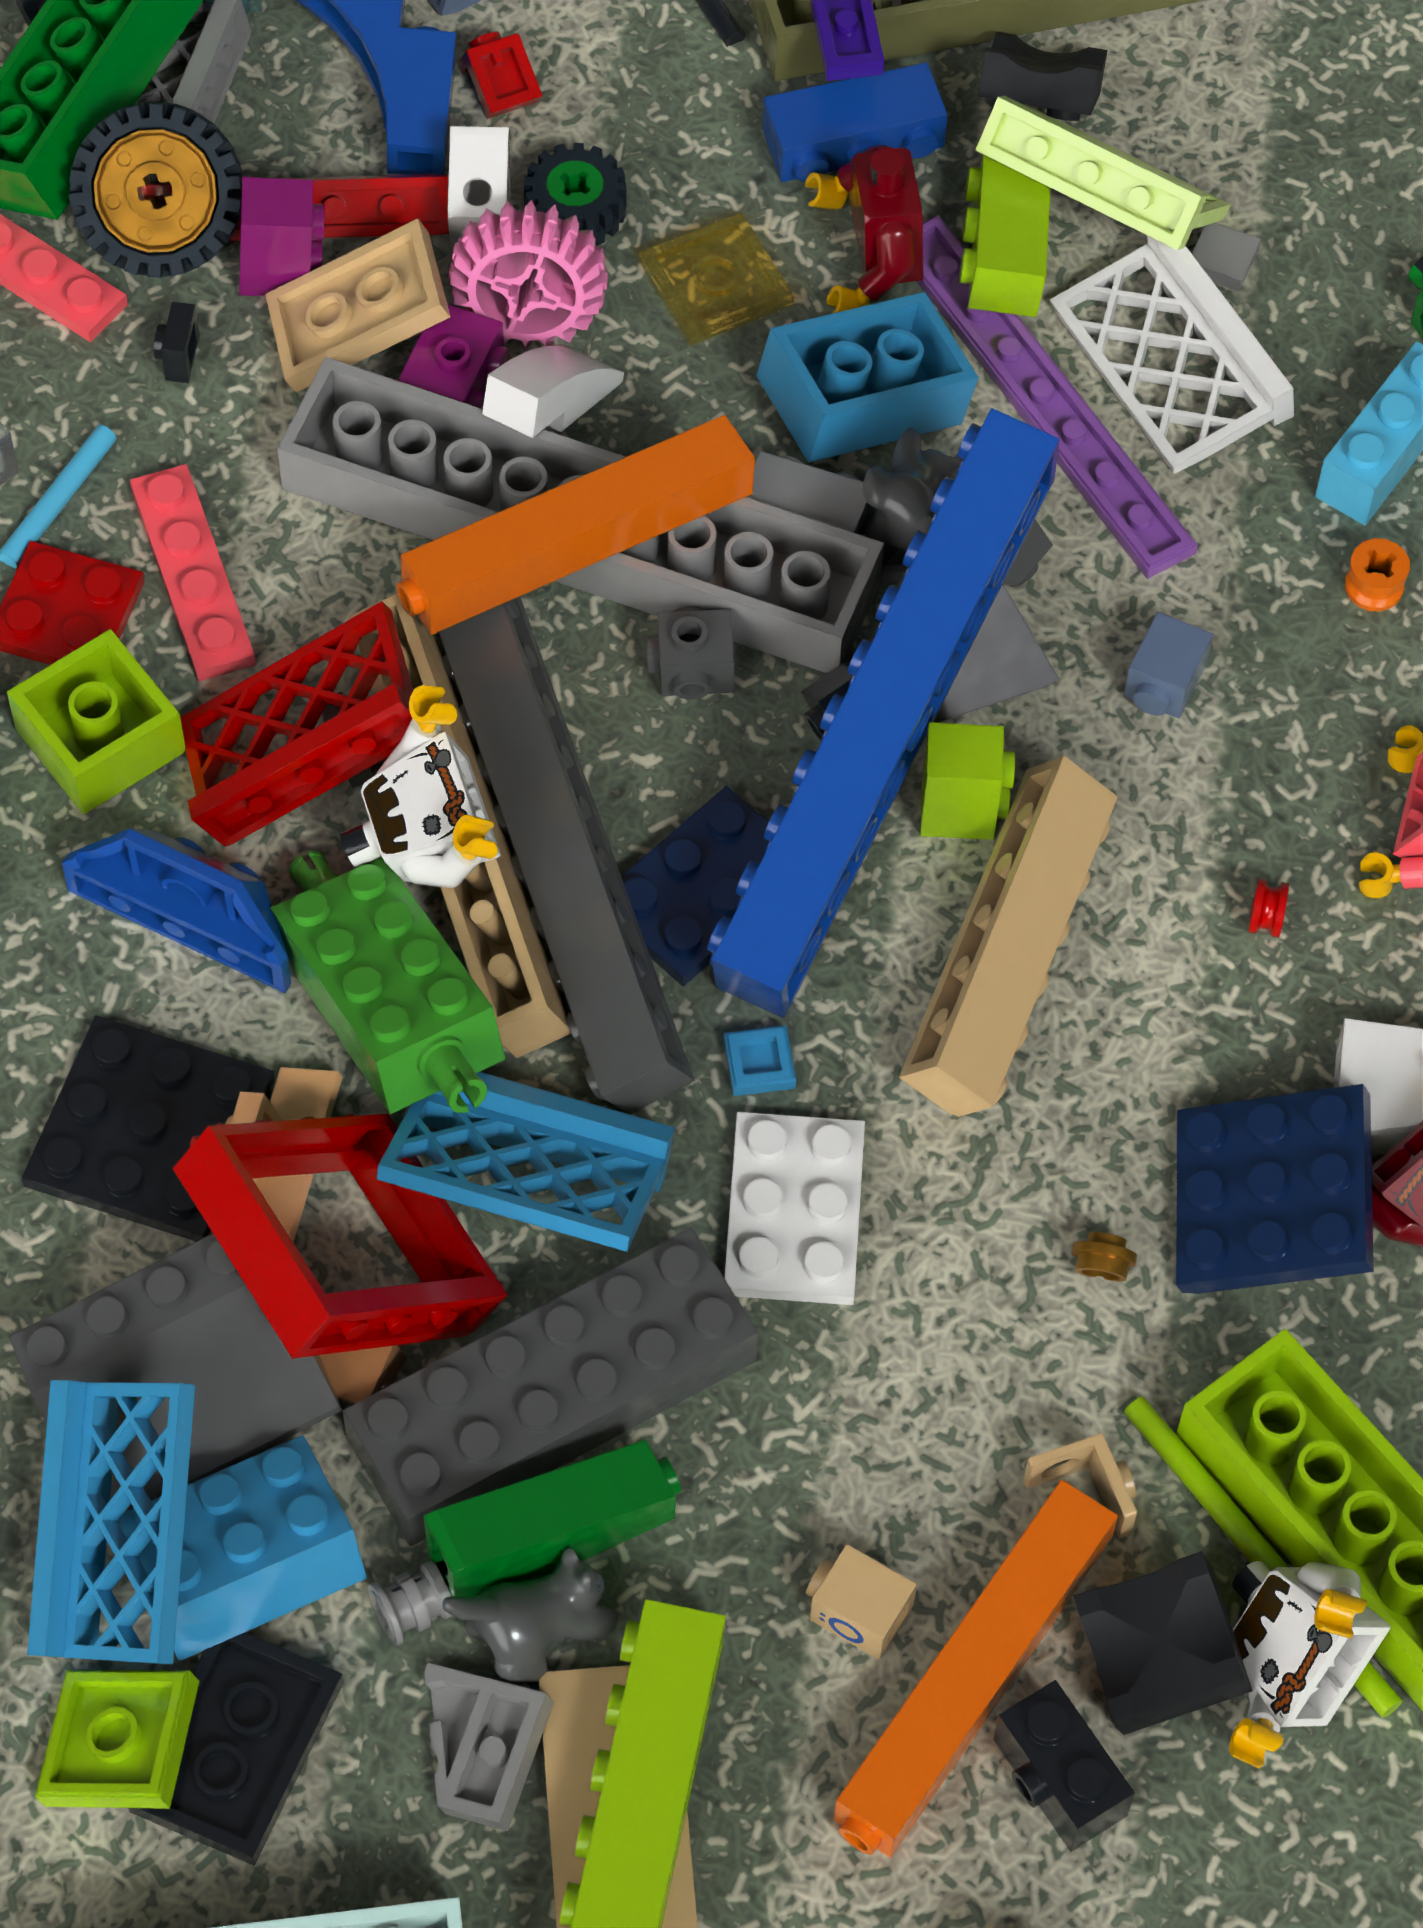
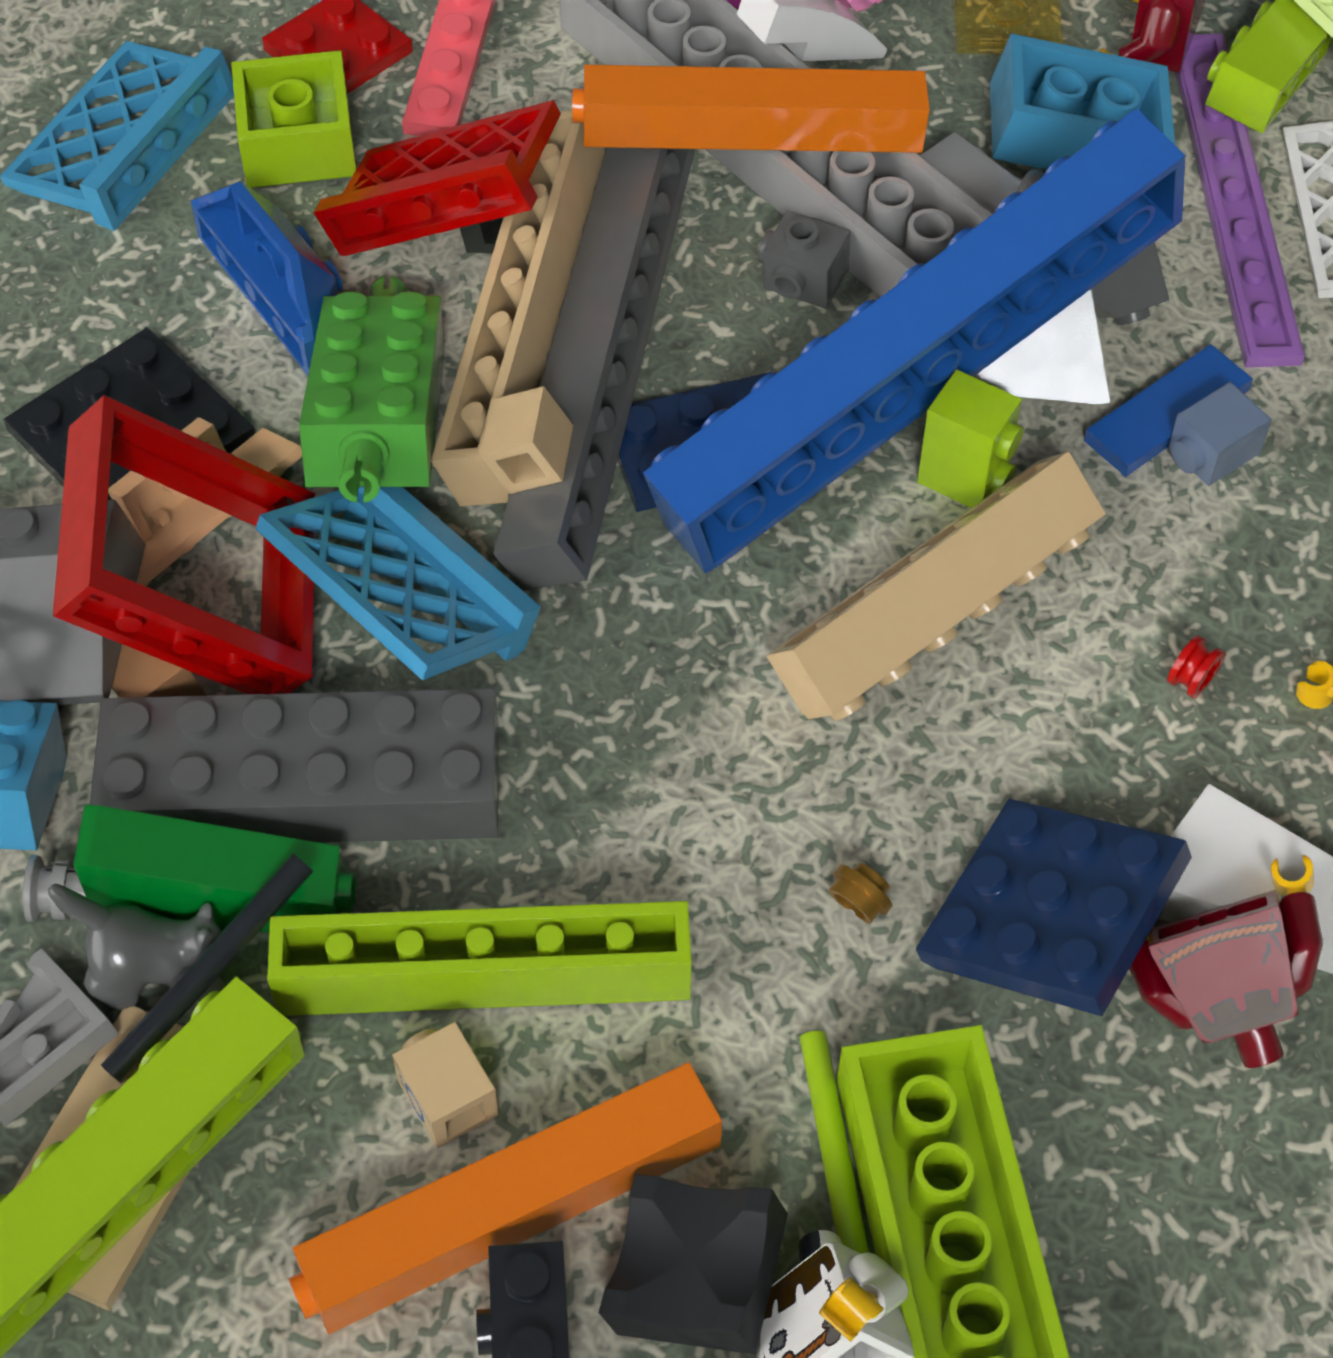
camera: 30 degrees right, 5 degrees down
(424, 804) = (489, 263): torso -> none
(575, 972) = (526, 440): none -> tan brick
(606, 1604) = (207, 968): none -> black bar
(759, 1060) = (660, 595): dark azure tile -> none
(795, 1208) = (611, 727): white plate -> none
(828, 1477) = (480, 958): none -> lime brick
(1102, 657) = (1146, 421): none -> blue tile
(1110, 1477) = (734, 1058): tan bracket -> none

